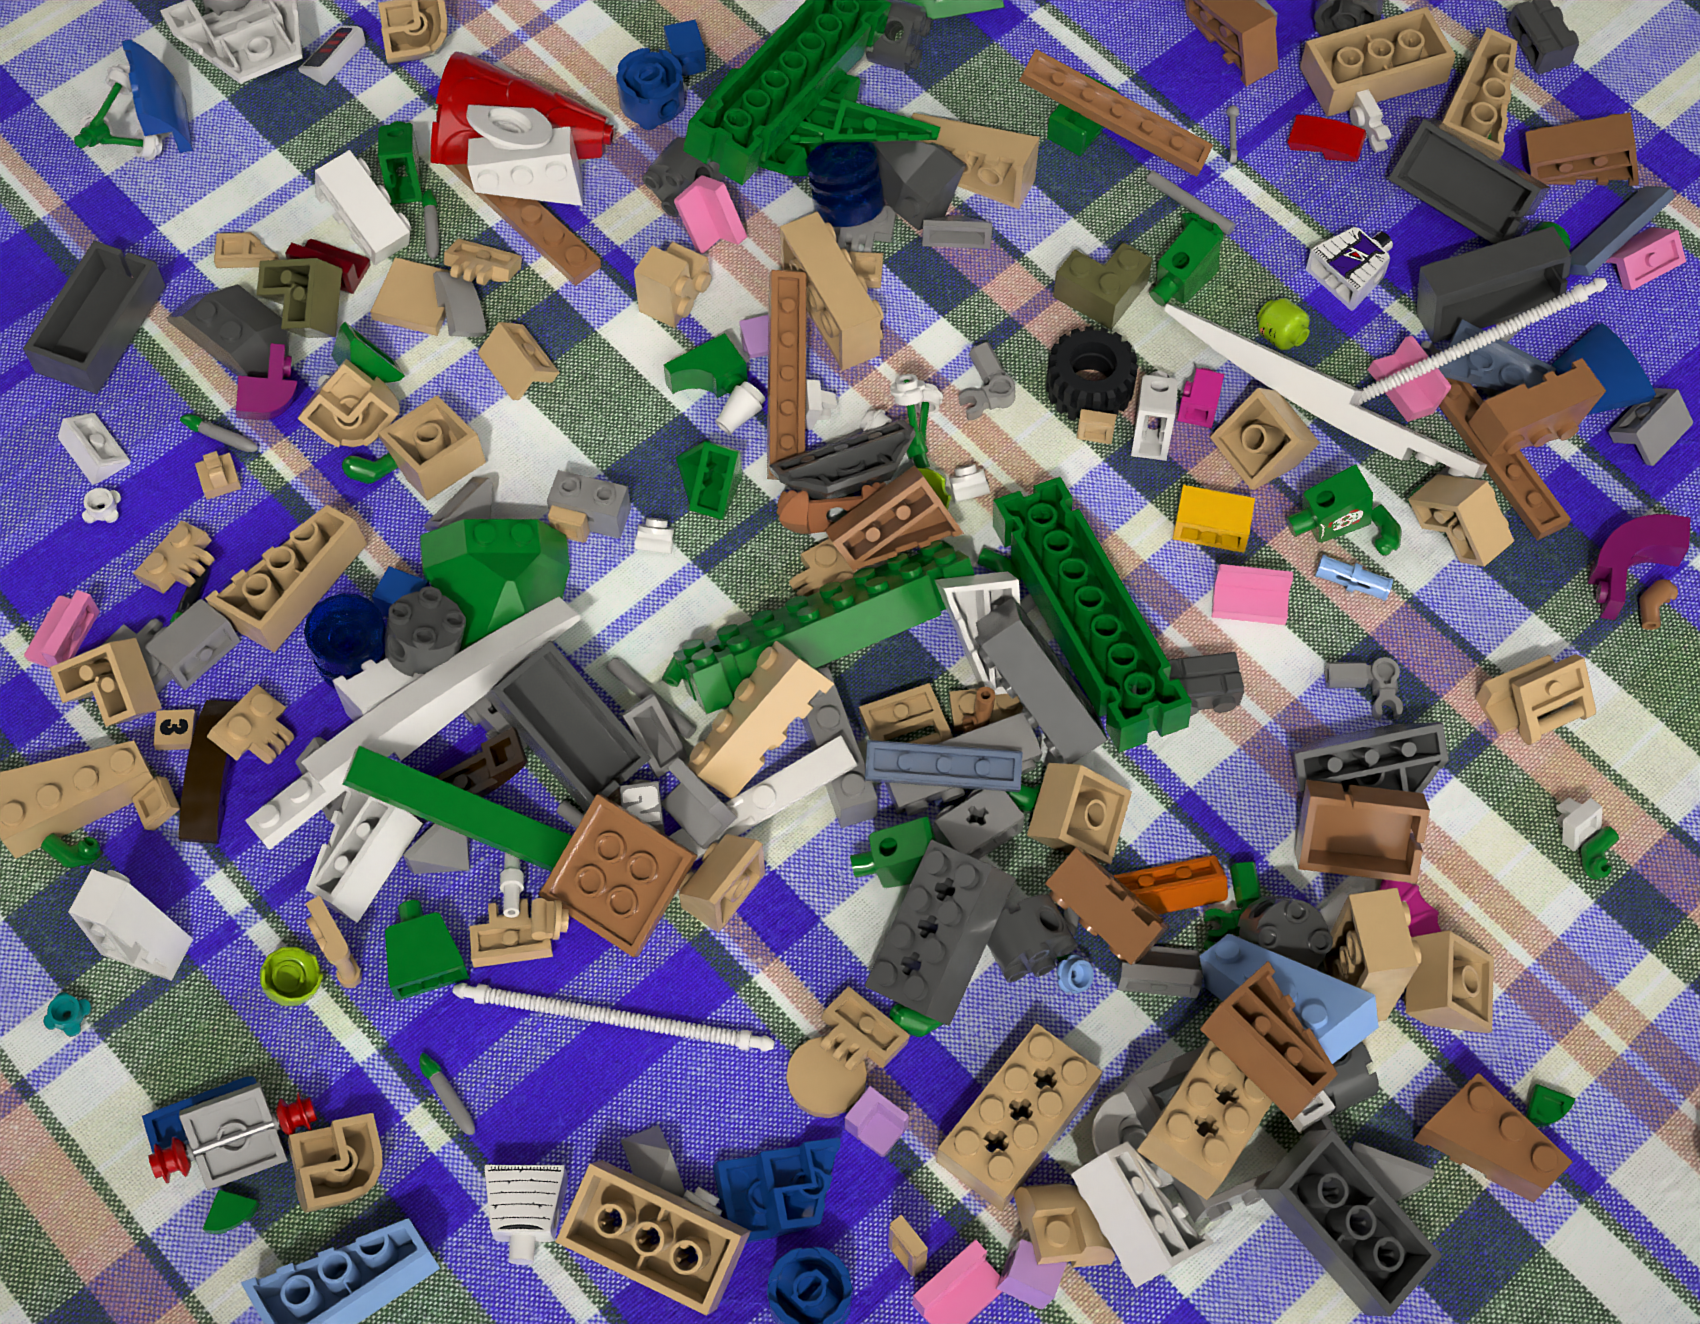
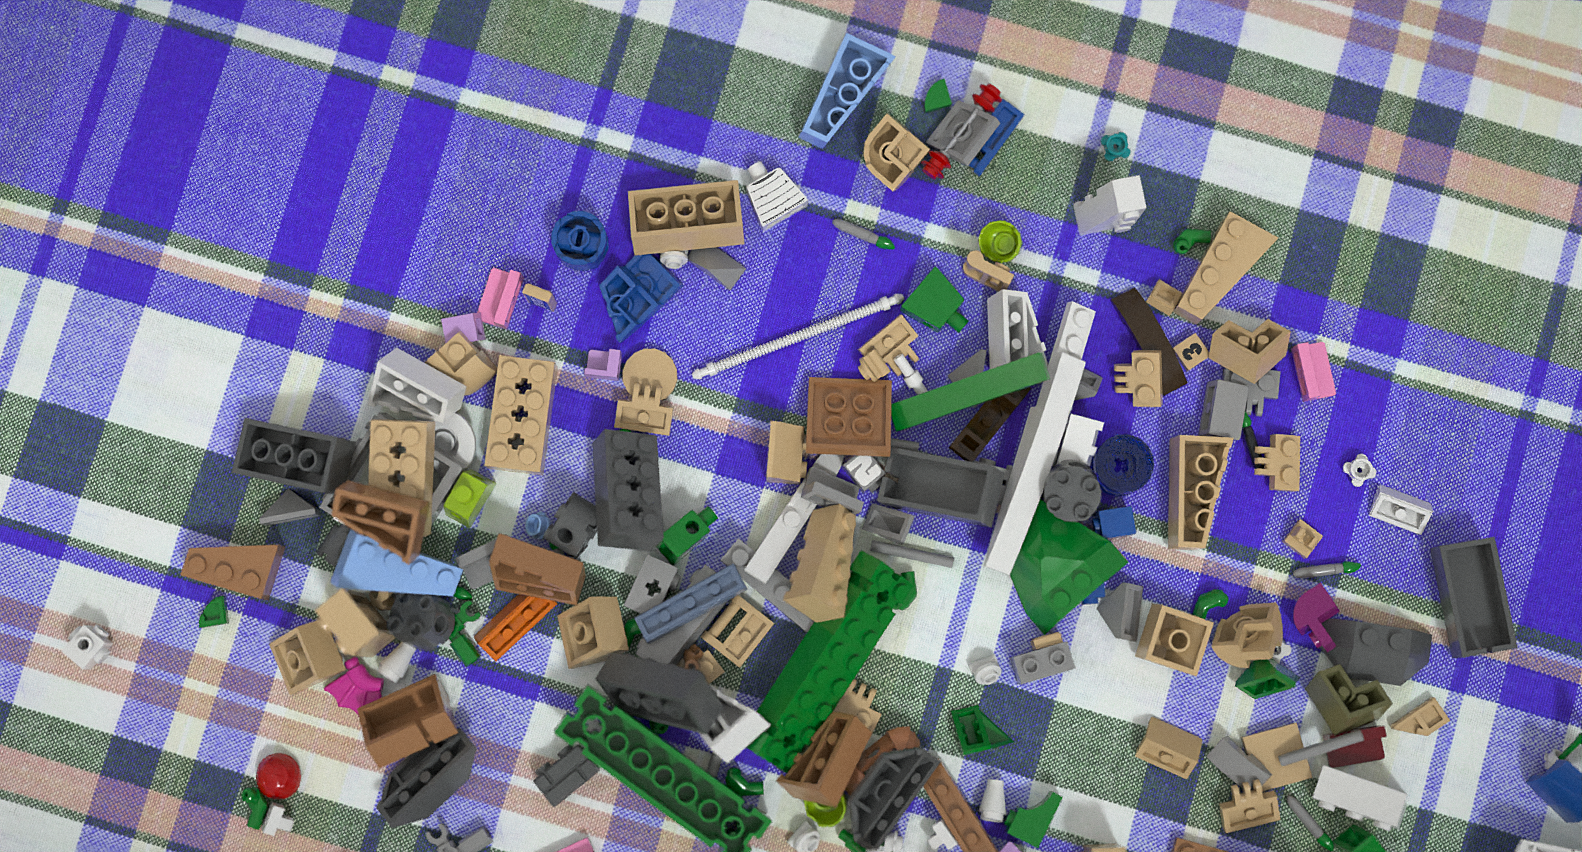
camera: 145 degrees right, 20 degrees up
(364, 266) = (1320, 748): none -> light grey bar
(1140, 1049) = (468, 497): none -> lime torso
(1552, 872) = (278, 776): none -> red piece

